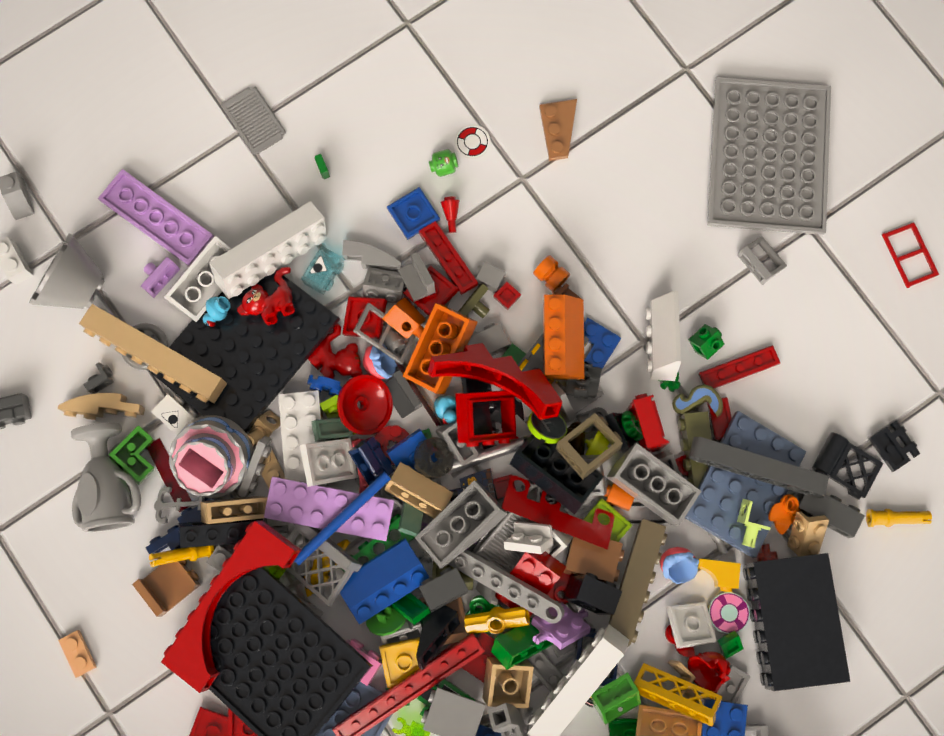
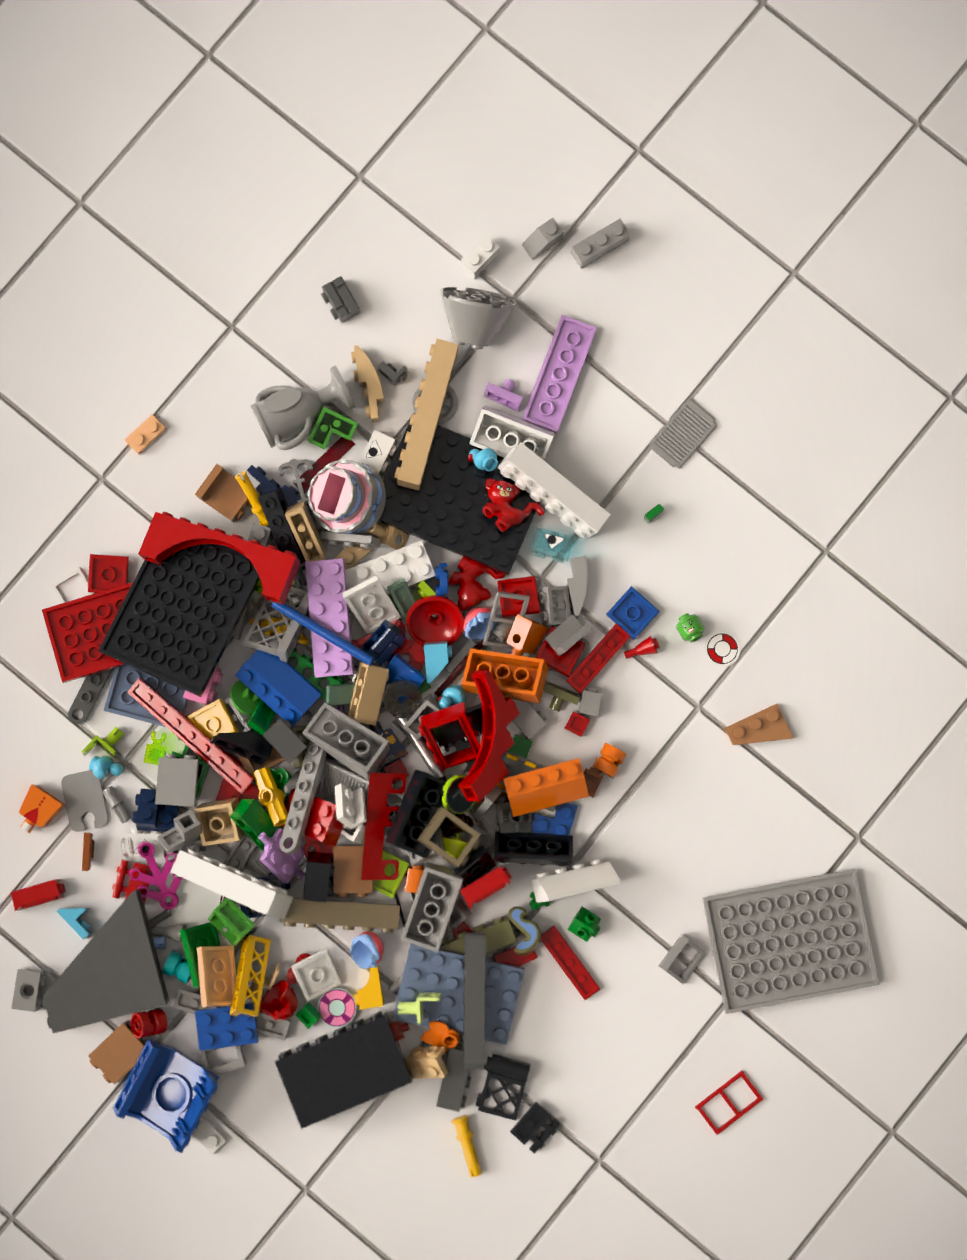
camera: 75 degrees right, 5 degrees up
(40, 143) = (600, 243): none -> light grey brick
(402, 413) = (436, 658): none -> medium azure slope
(620, 369) = (533, 849): none -> black slope
(631, 426) = (482, 870): green gear -> none

